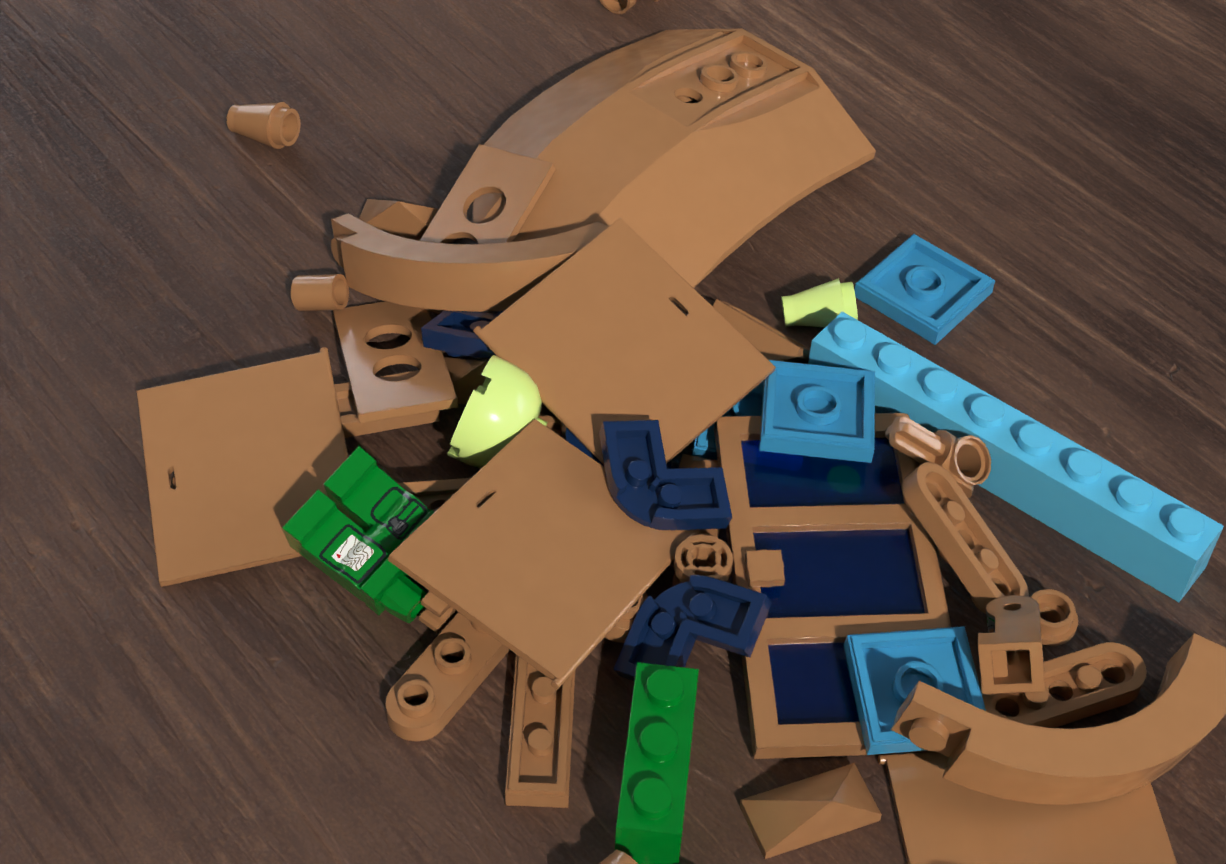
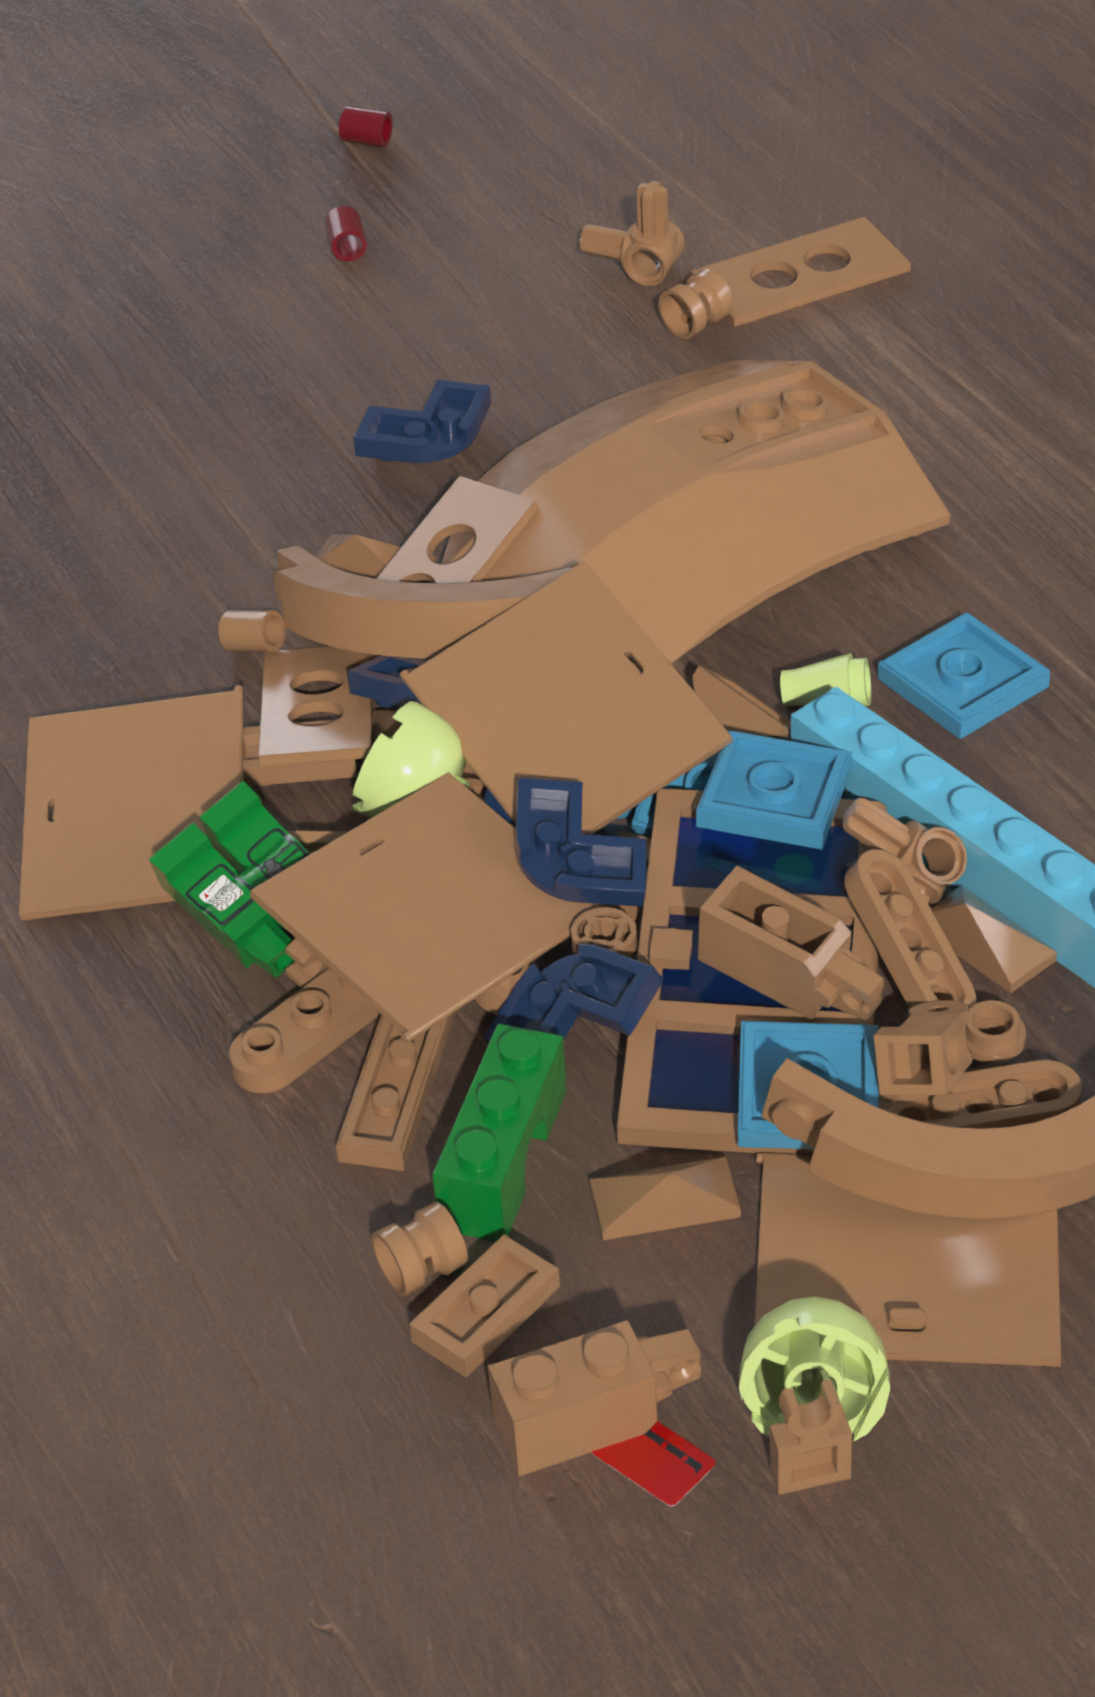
camera: 15 degrees right, 5 degrees down
(266, 123) = (232, 442): medium nougat cone -> none
(427, 108) = (437, 433): none -> dark blue plate
(877, 565) = (784, 948): none -> medium nougat hinge
(1020, 529) = (991, 940): none -> medium nougat slope

